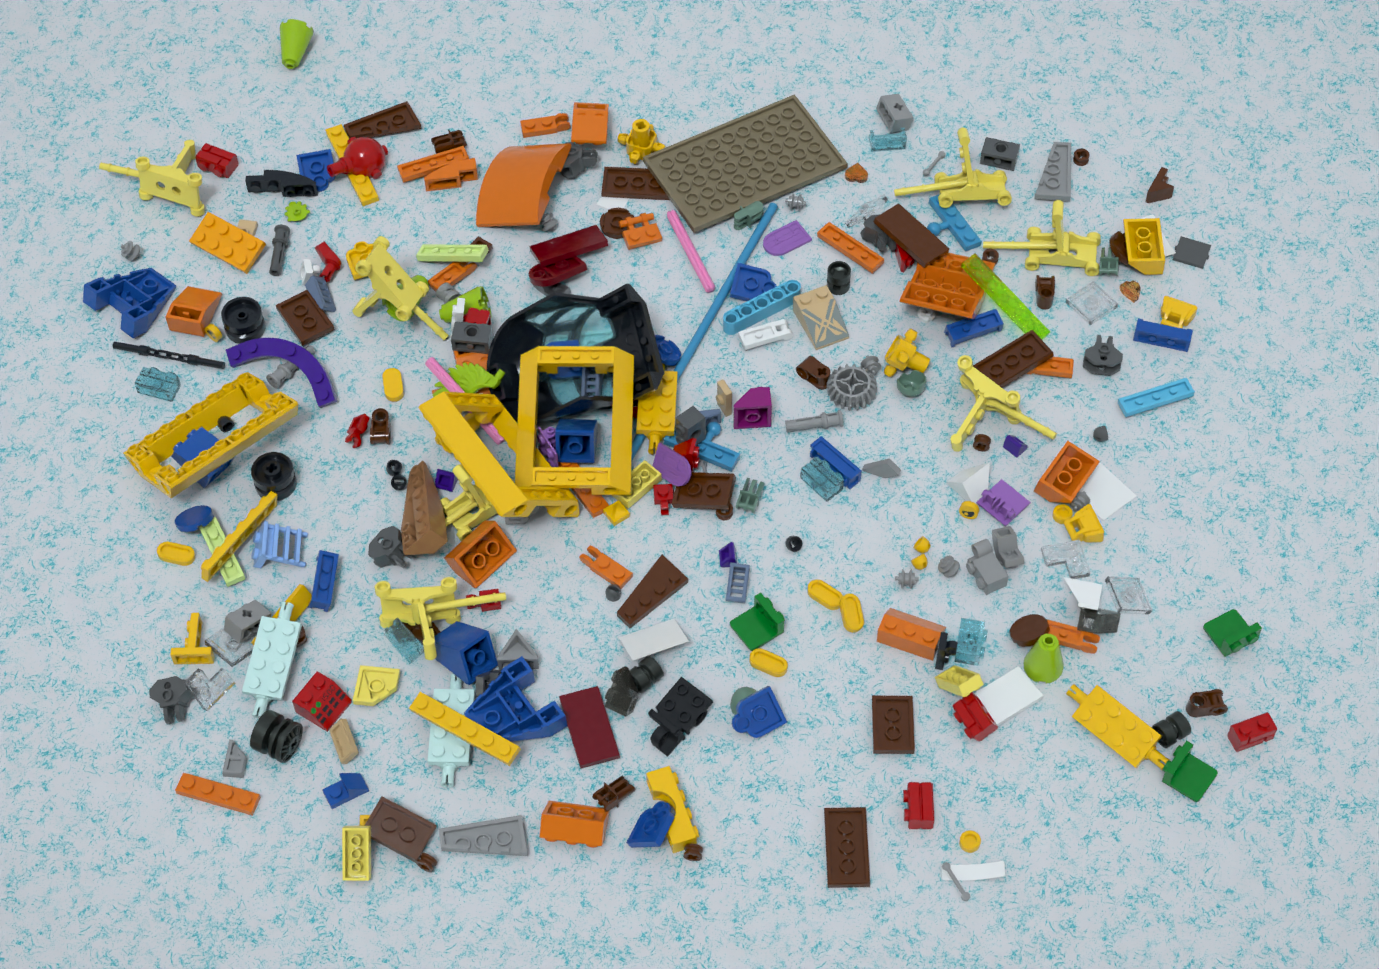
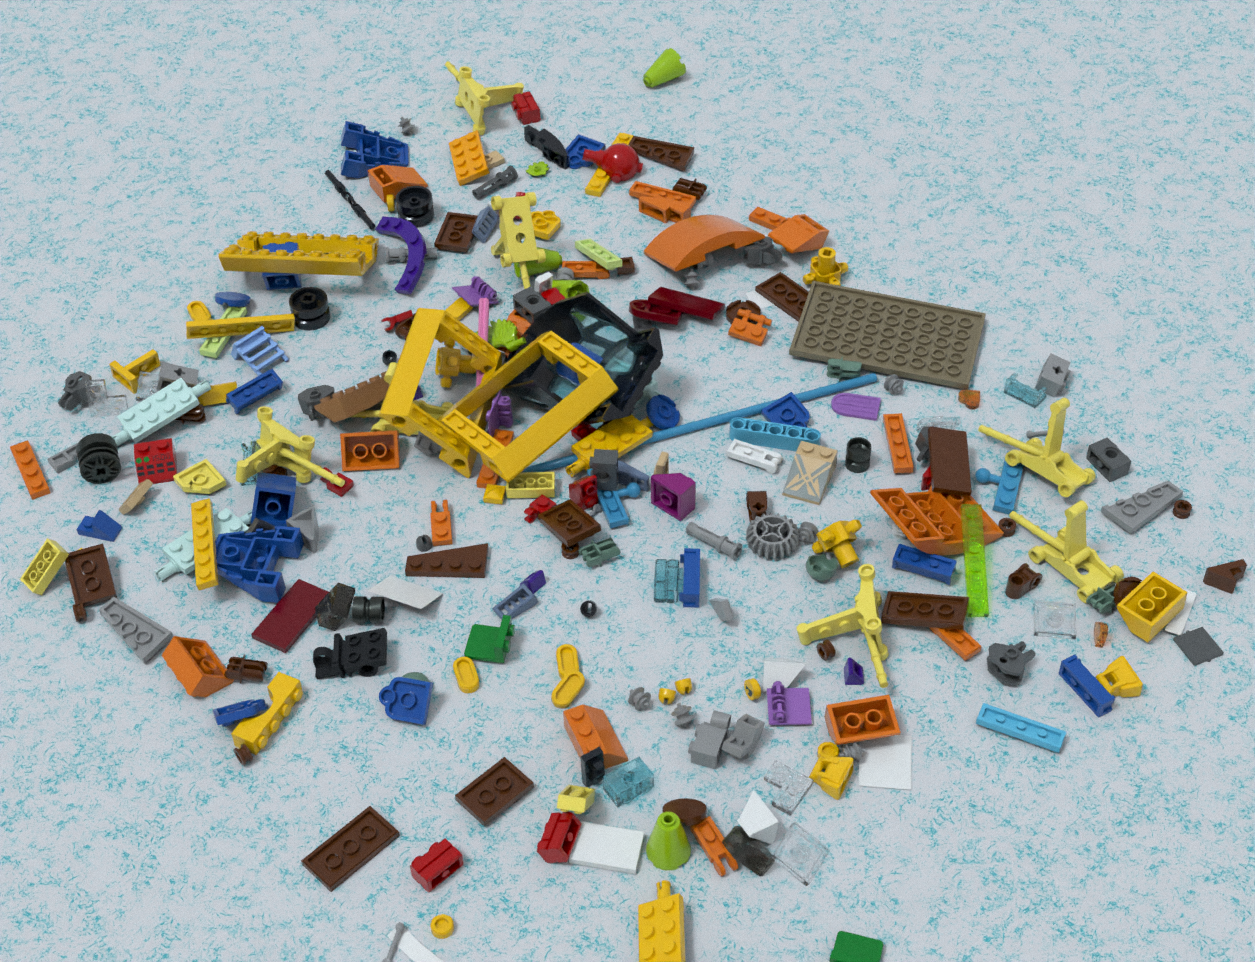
camera: 45 degrees right, 10 degrees down
(157, 383) = (319, 209): clear light blue brick -> none
(393, 361) = (475, 291): none -> medium lavender hinge
(398, 485) = (377, 365): black hinge -> none
(576, 440) = (515, 417): blue slope -> none
(672, 465) = (565, 487): medium lavender window -> none
(690, 251) = (771, 366): bright pink axle -> none
(1100, 434) = (936, 718): dark grey hinge -> none

